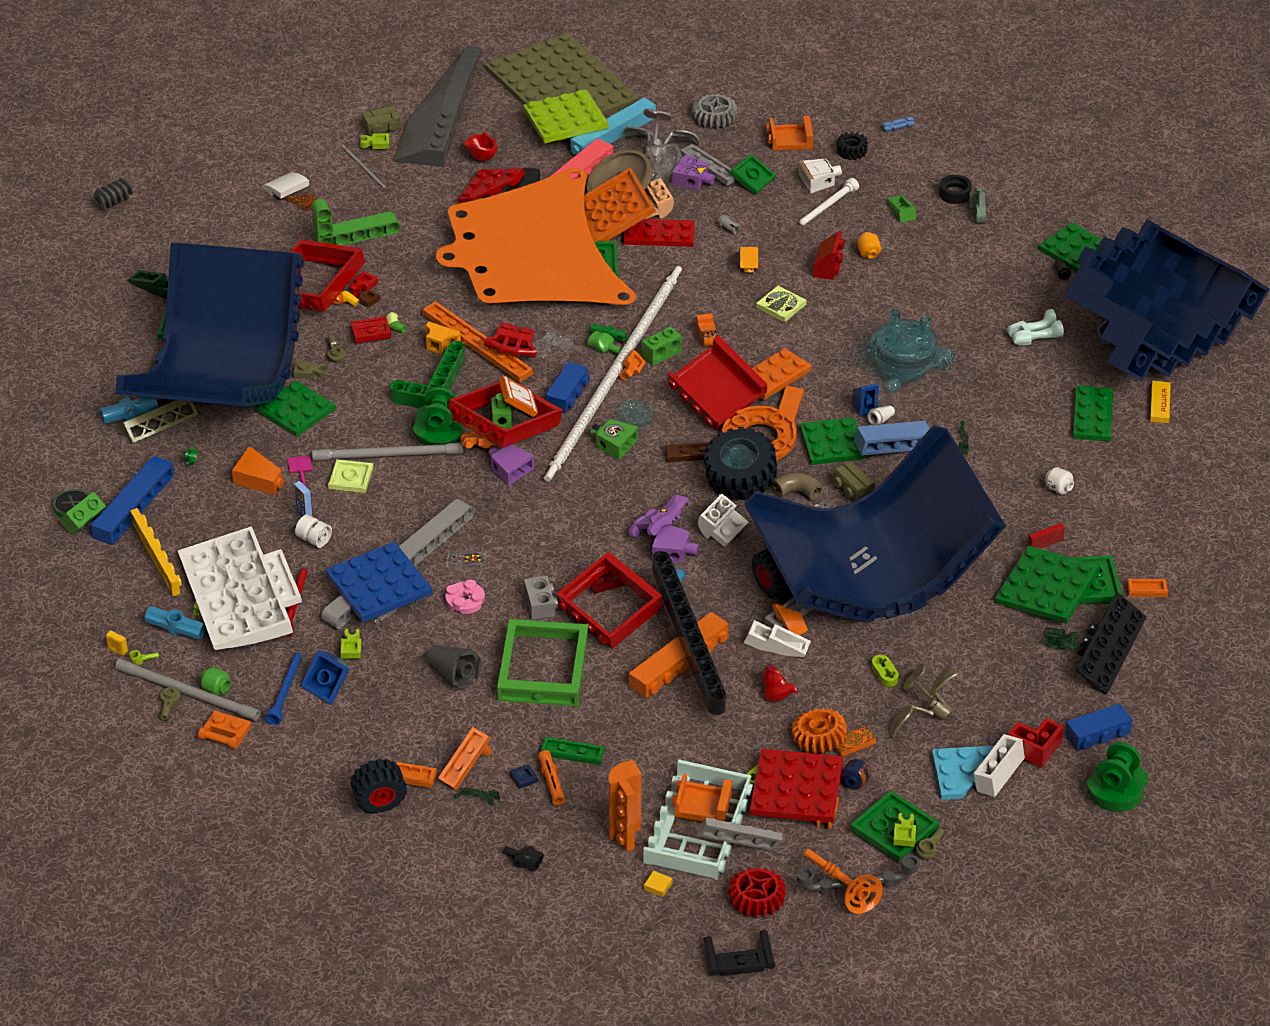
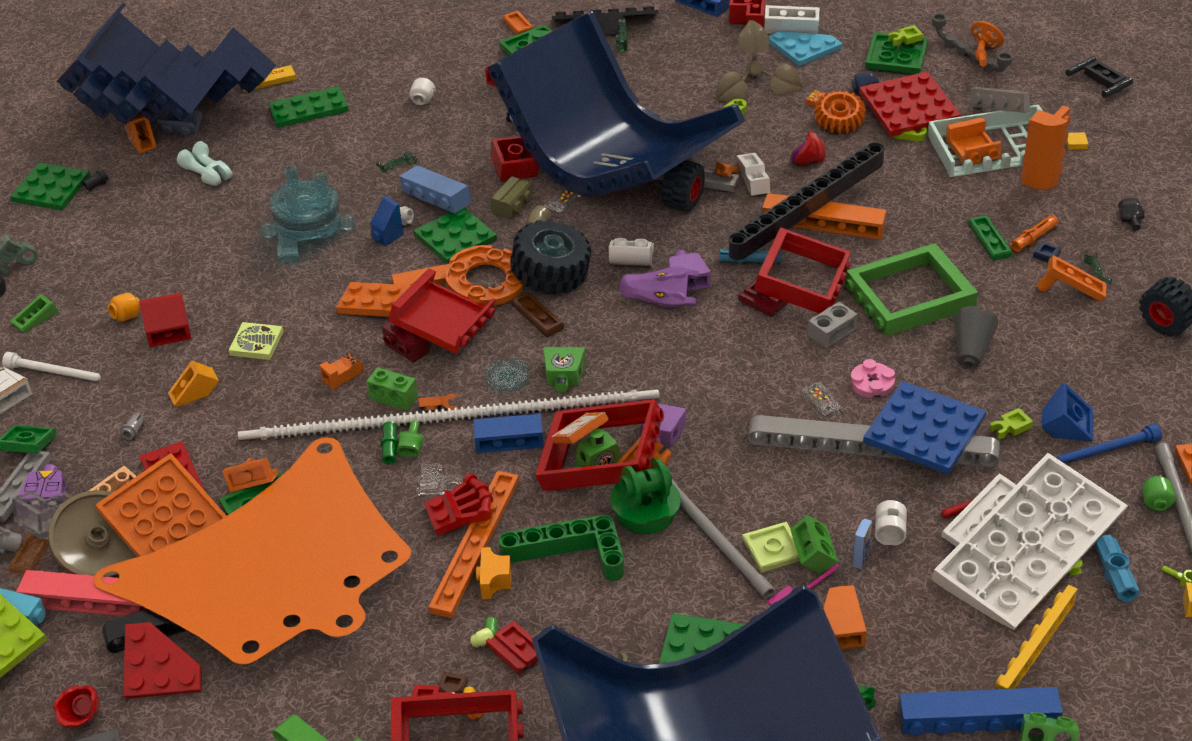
camera: 115 degrees left, 0 degrees up
(327, 481) = (813, 545): none -> bright green brick
(418, 775) = (1119, 311): orange plate -> none
(622, 256) = (249, 474): none -> orange panel
(758, 886) = (1041, 86): red gear -> none

